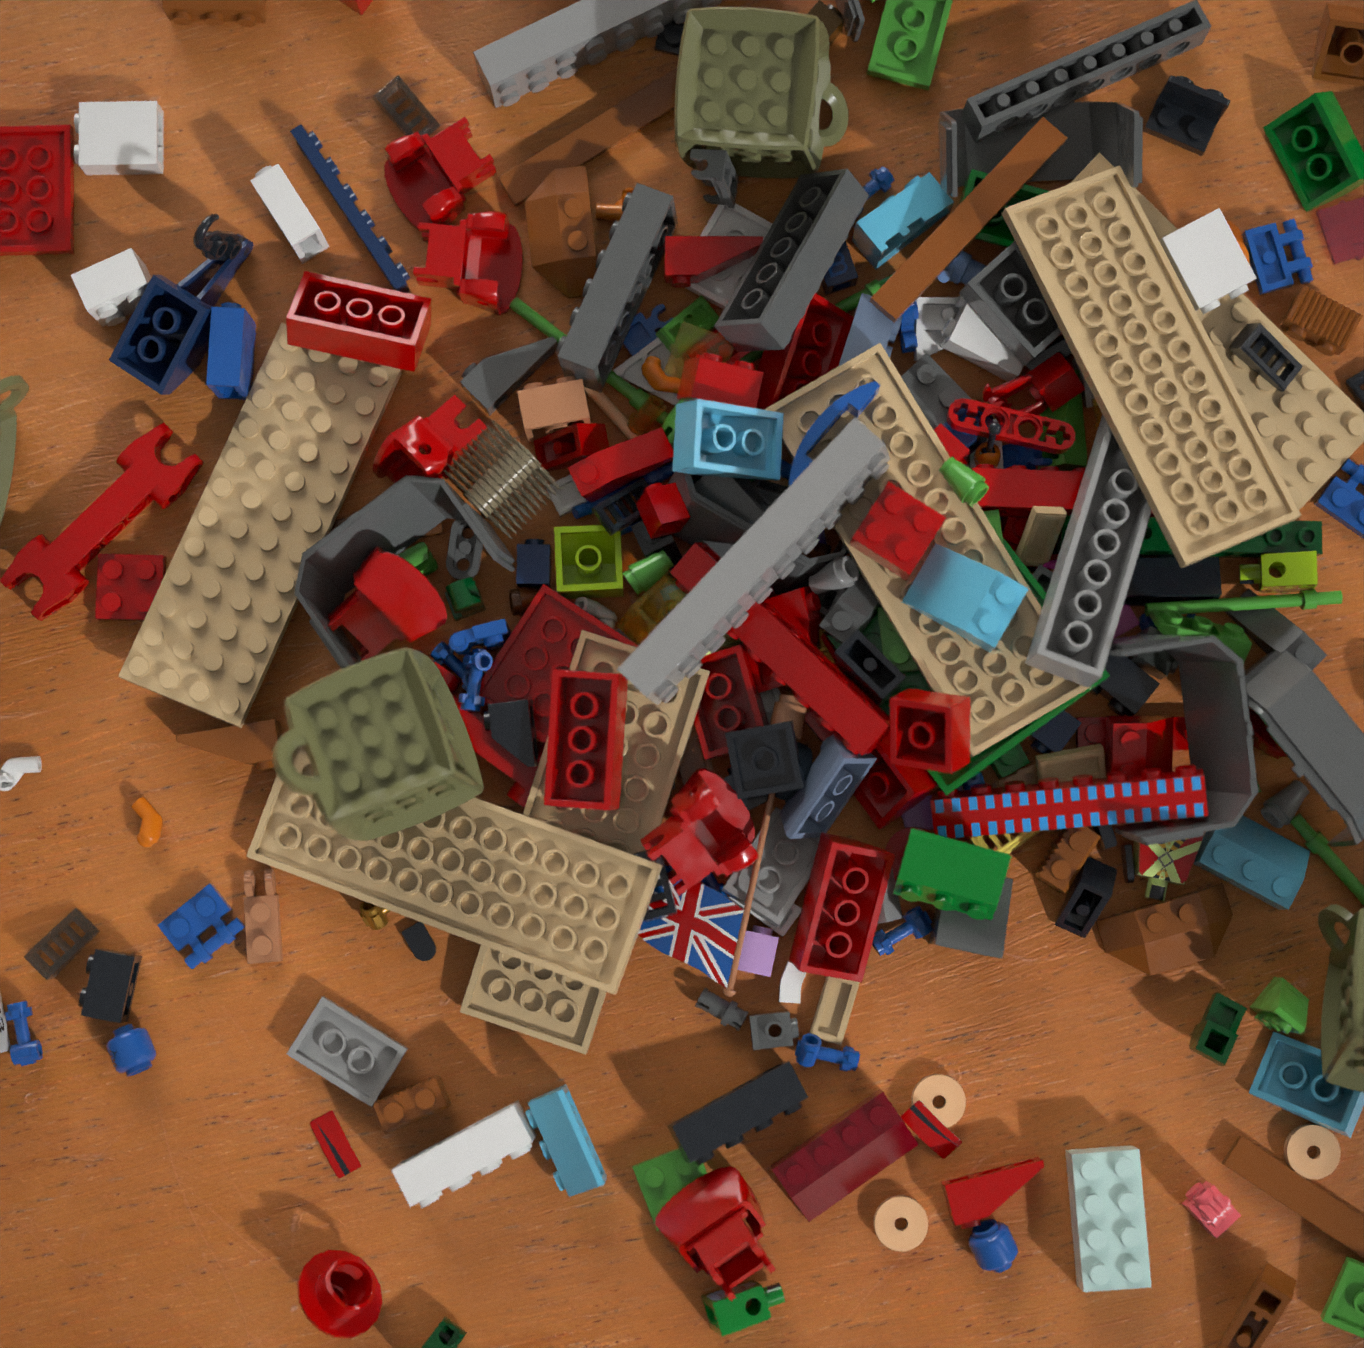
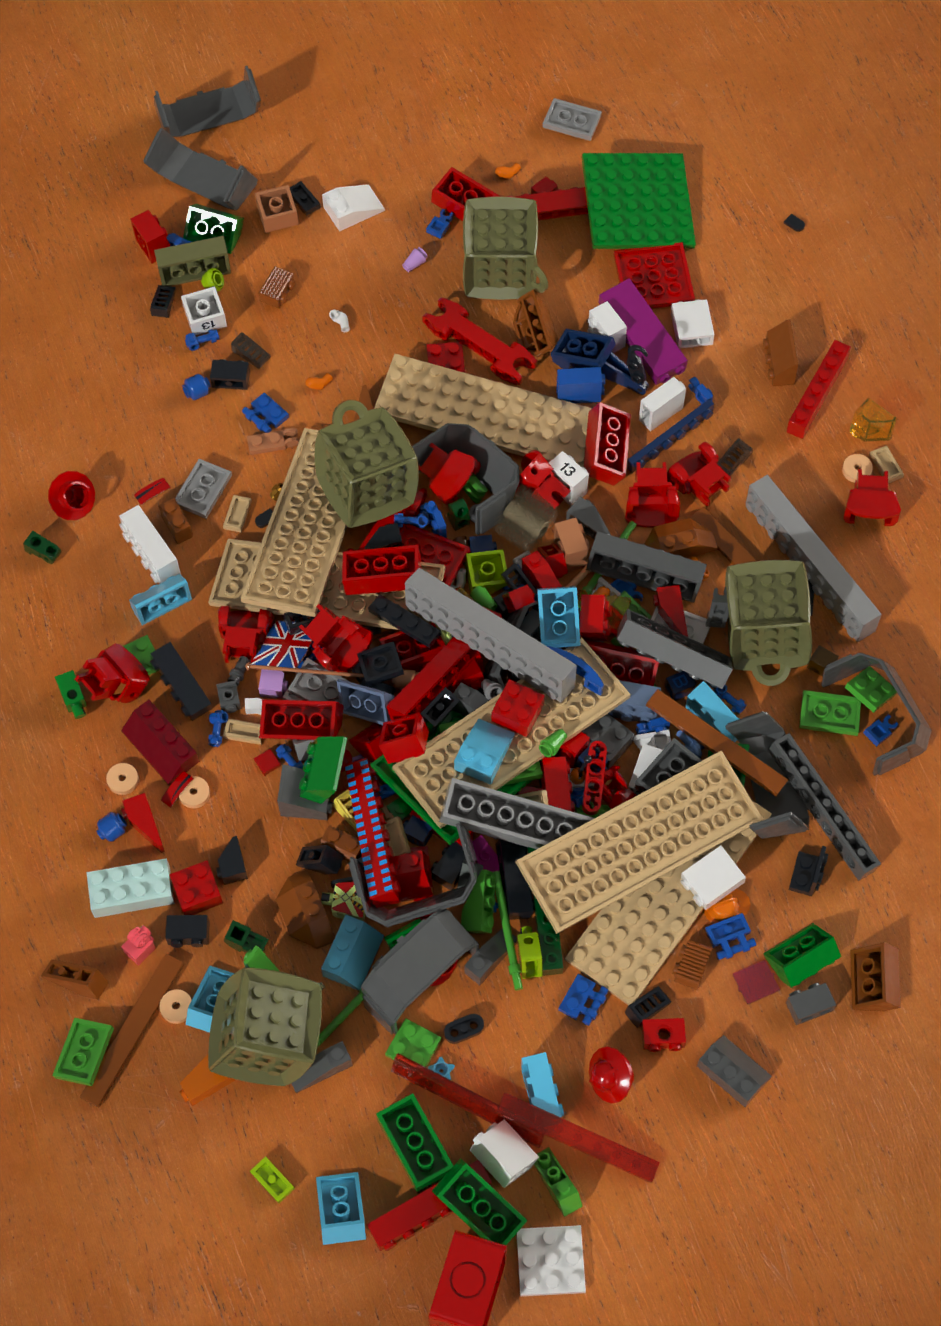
camera: 85 degrees right, 20 degrees down
(90, 417) = (534, 325): none -> dark orange wedge
(141, 217) = (647, 331): none -> magenta brick
(272, 143) = (701, 392): none -> blue plate
(404, 991) = (237, 513): none -> tan tile
(418, 392) = (571, 476): none -> white brick
(651, 997) = (243, 631): none -> red piece
(687, 710) = (404, 621): none -> black plate
(896, 972) = (267, 762): none -> red tile
(1080, 1044) = (231, 863): none -> black slope
(1120, 1107) = (196, 888): none -> red brick
(1190, 1125) = (187, 930): none -> black brick
(1247, 352) = (669, 910): black slope -> none

